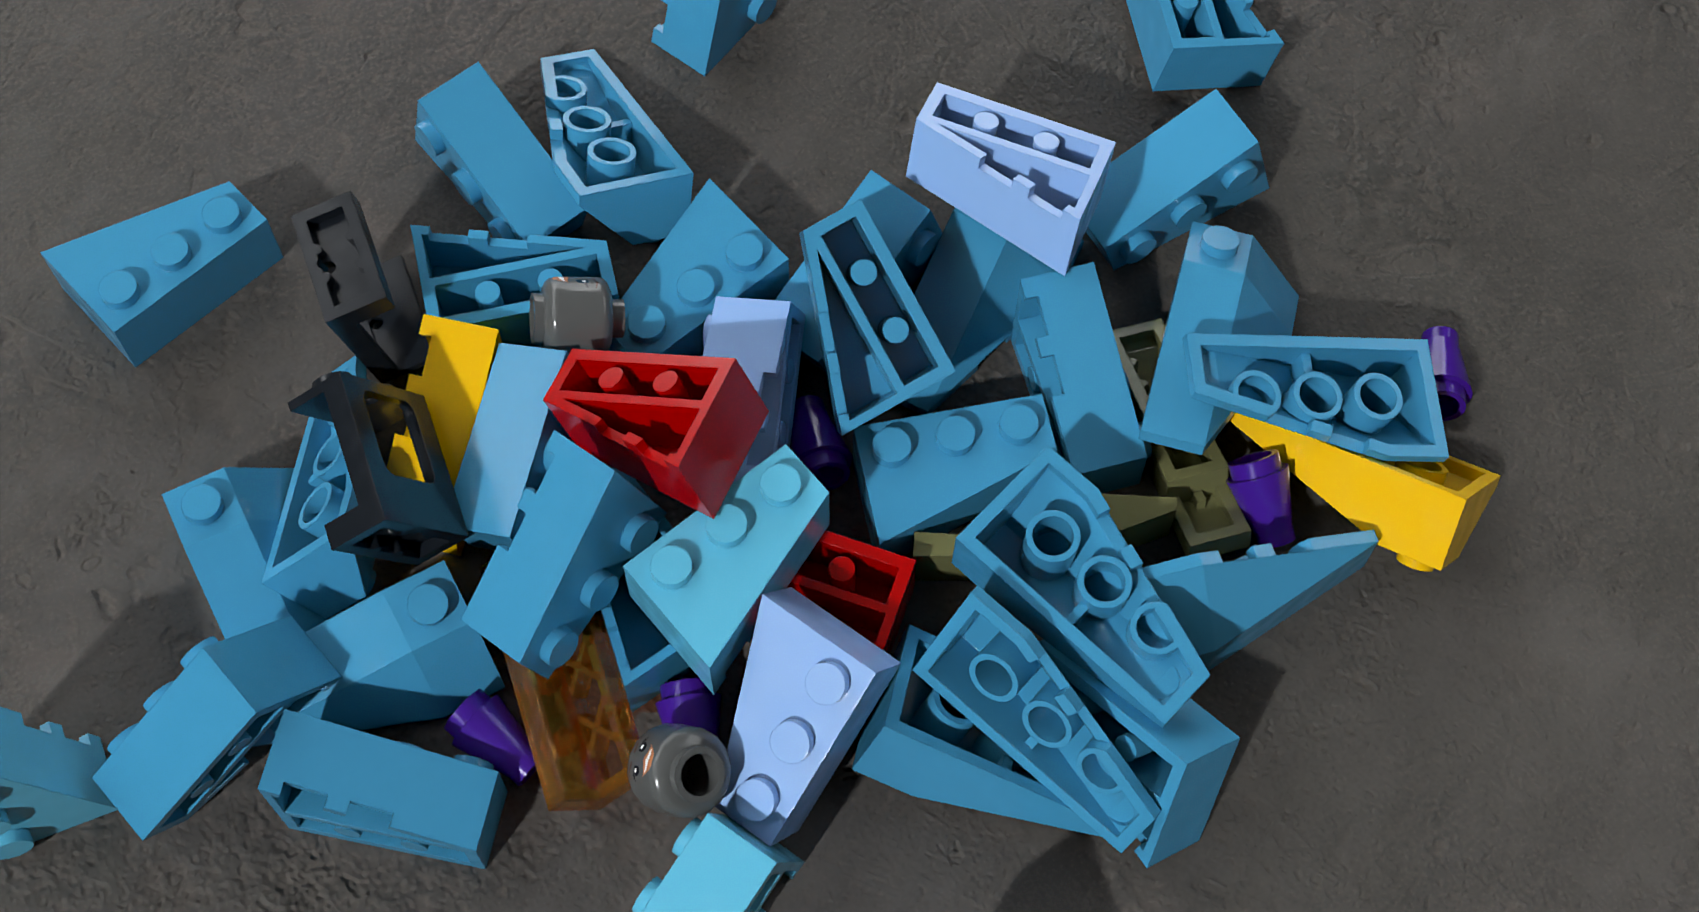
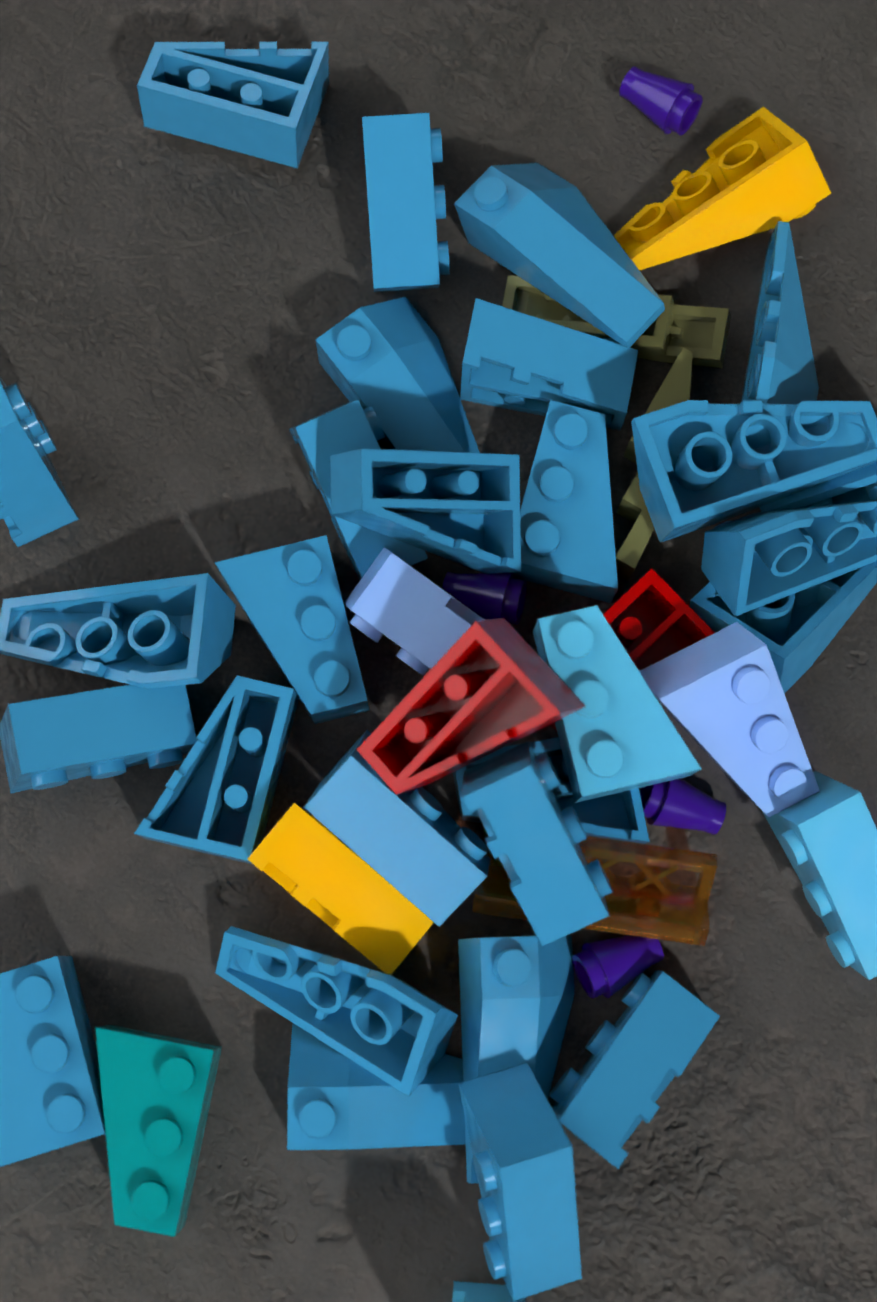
camera: 65 degrees left, 15 degrees up
(145, 383) = (154, 1122): none -> teal wedge
(361, 290) = (202, 895): black window -> none
(394, 514) = (436, 962): black window -> none
(575, 314) = (309, 734): dark grey head -> none
(679, 770) = (742, 830): dark grey head -> none
(1011, 171) = (370, 316): light blue wedge -> none
(1264, 495) = (700, 282): dark purple cone -> none
(1339, 390) = (663, 185): dark azure wedge -> none

